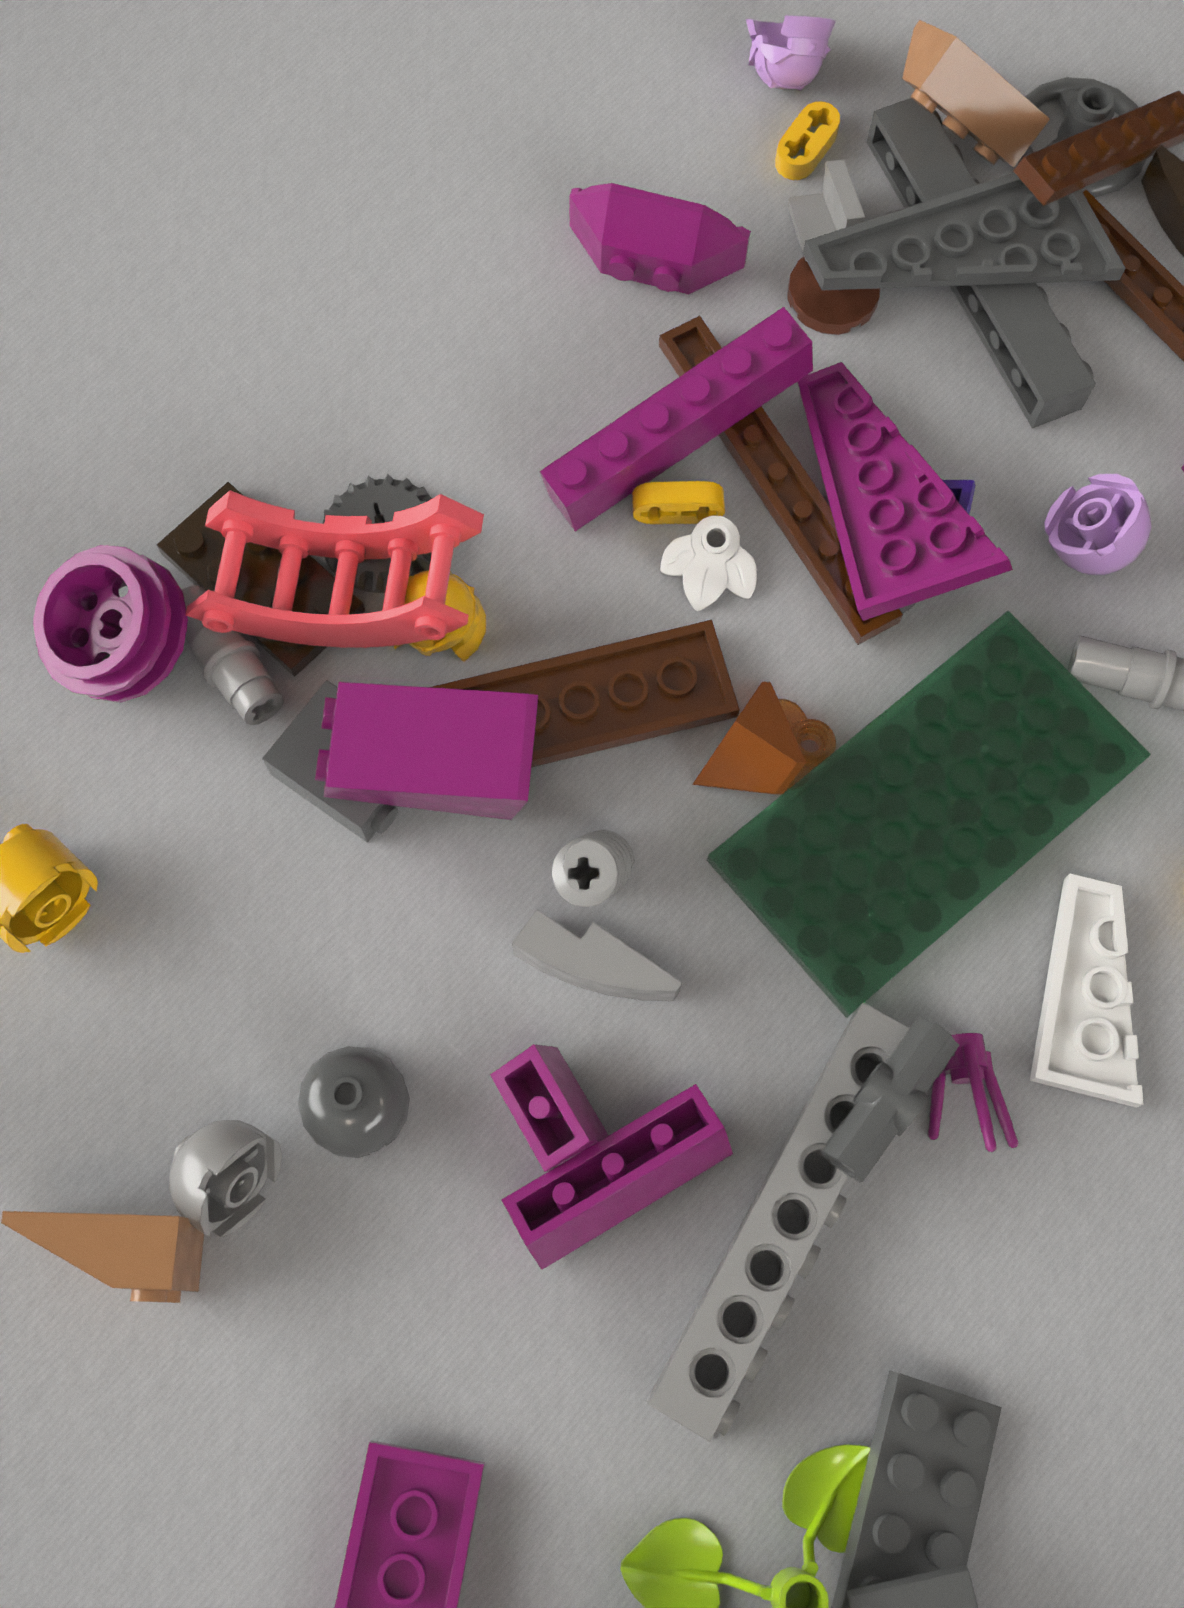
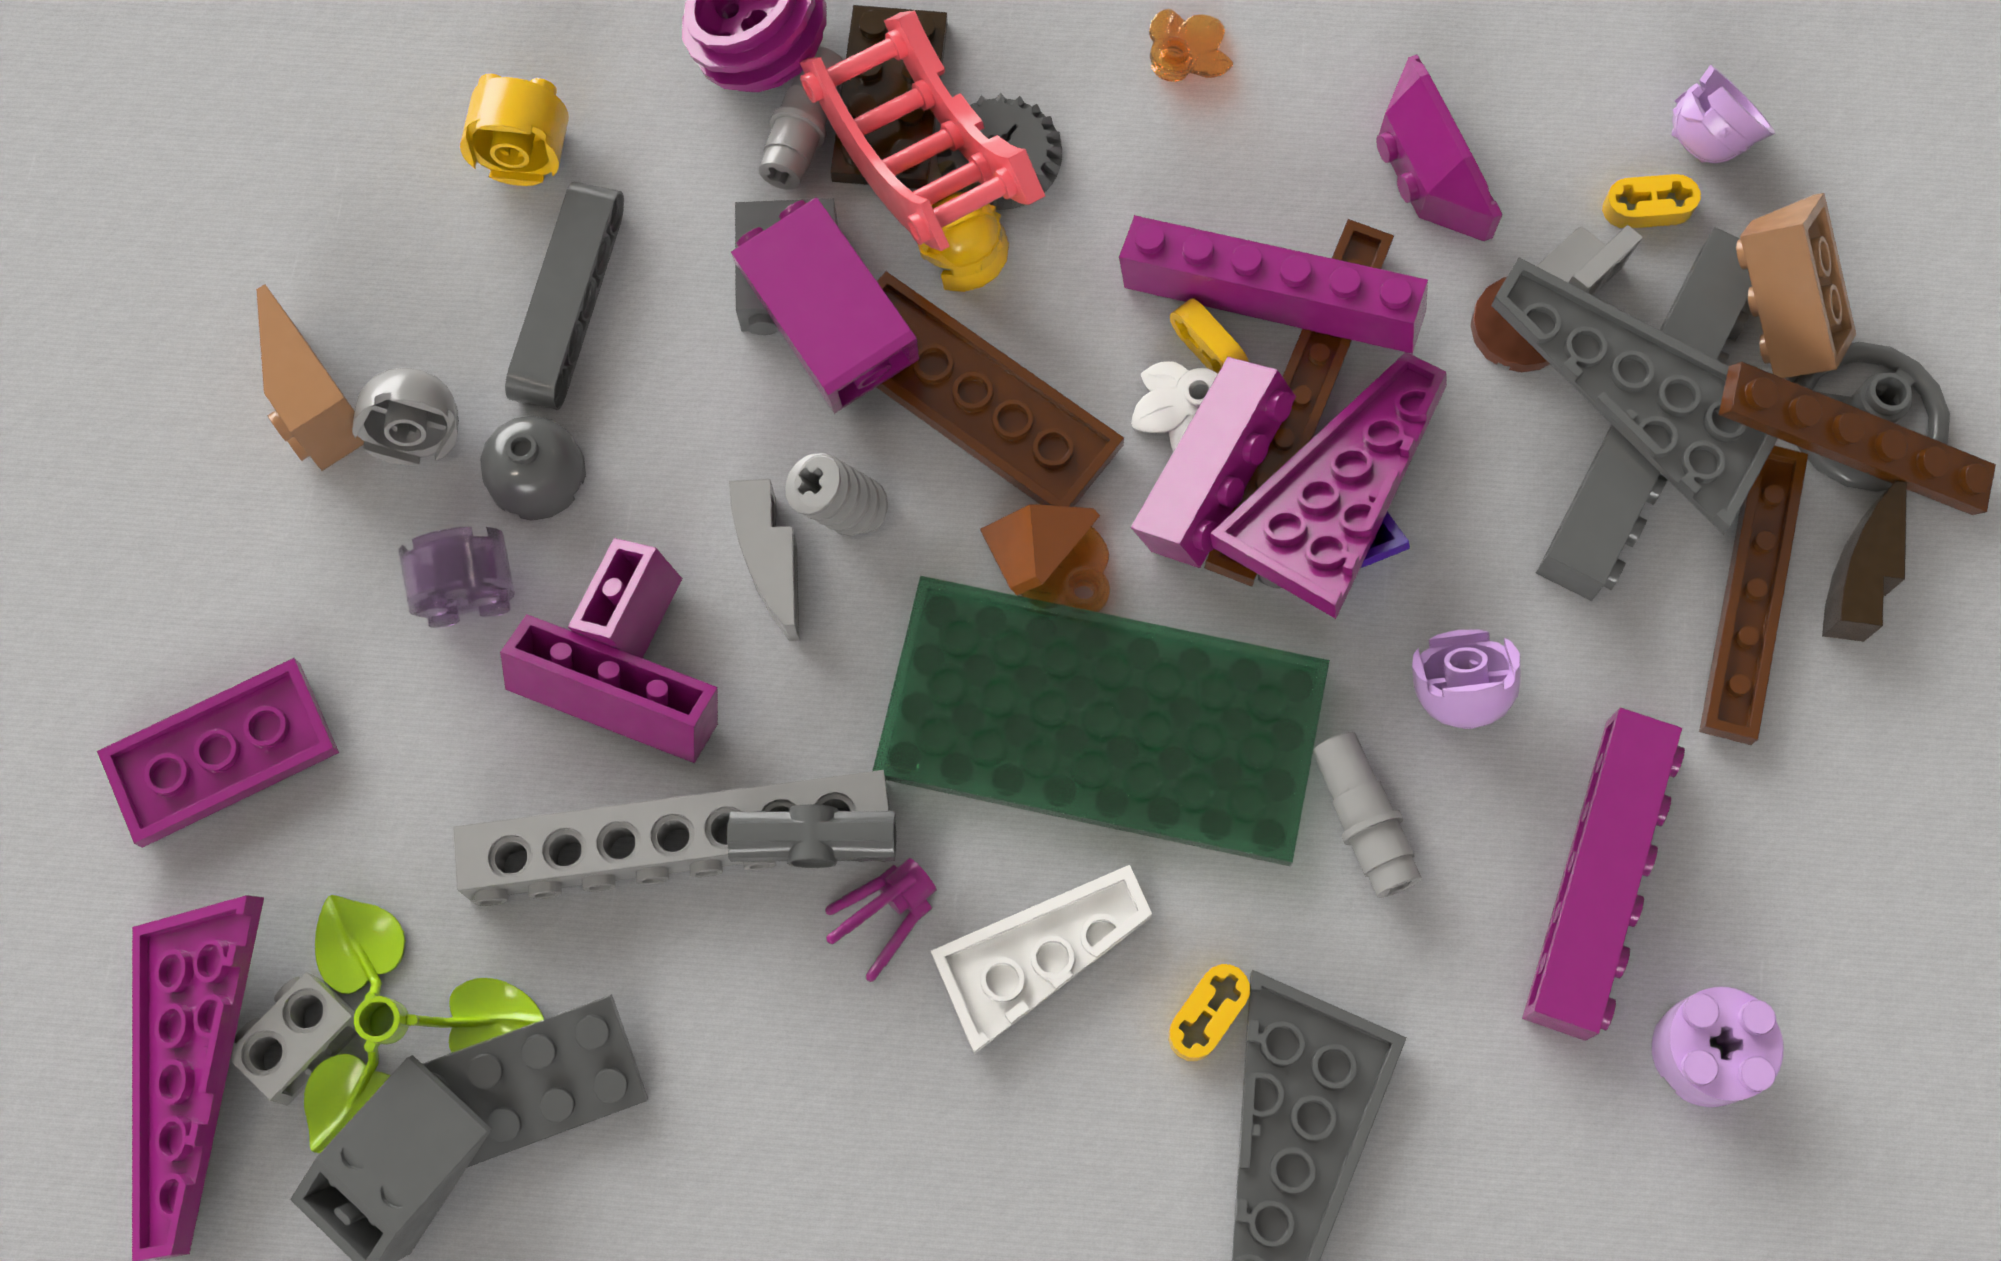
camera: 55 degrees right, 0 degrees up
(218, 960) = (565, 296): none -> dark grey beam
(413, 338) = (1187, 46): none -> clear orange plate
(413, 1236) = (457, 575): none -> clear purple brick
(789, 568) = (1214, 461): none -> brick

